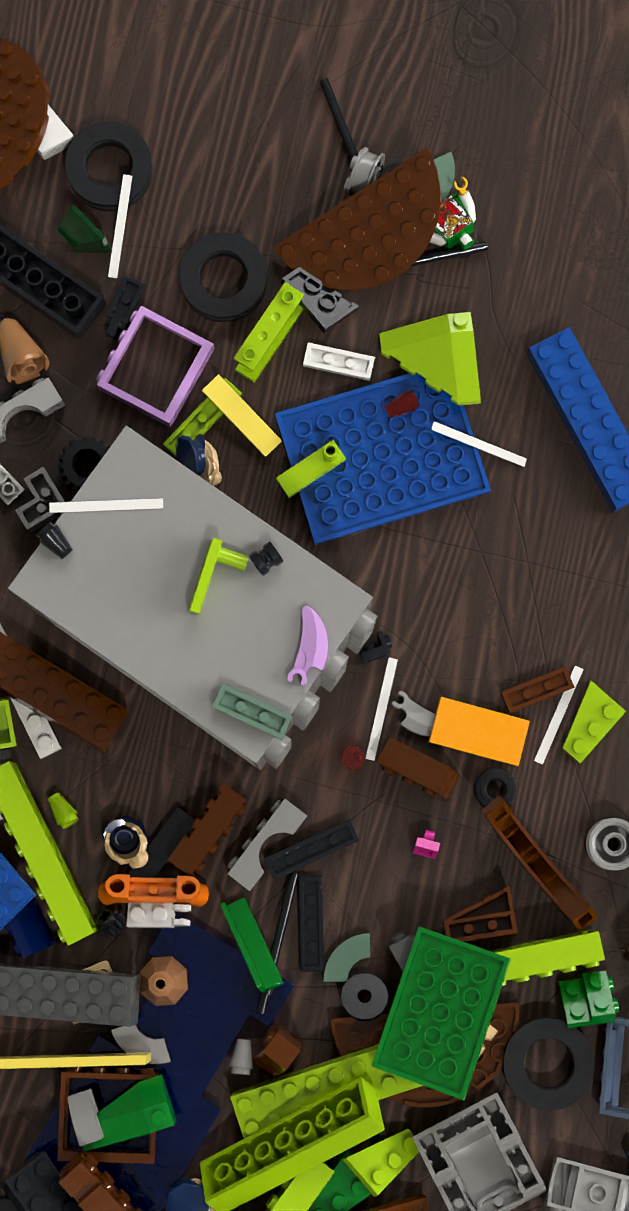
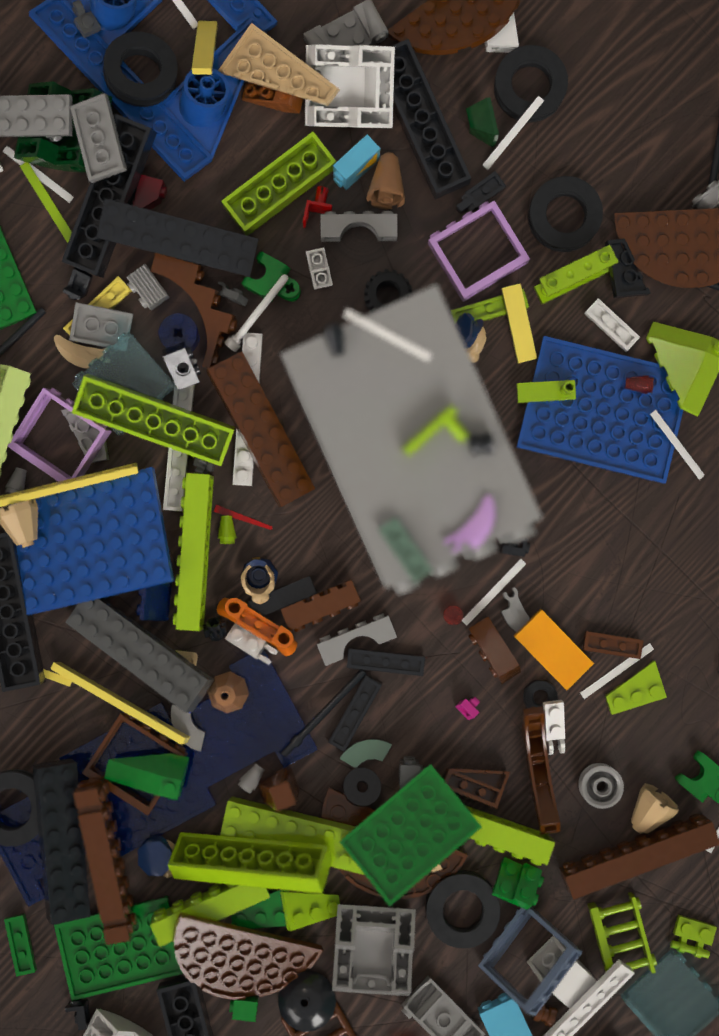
camera: 30 degrees right, 5 degrees up
(37, 511) = (335, 306): light grey brick -> none
(44, 793) = (221, 510): none -> red sticker
(84, 1117) = (118, 755): light grey slope -> none
(252, 945) = (305, 704): green panel -> none
(526, 810) = (554, 725): none -> white hinge

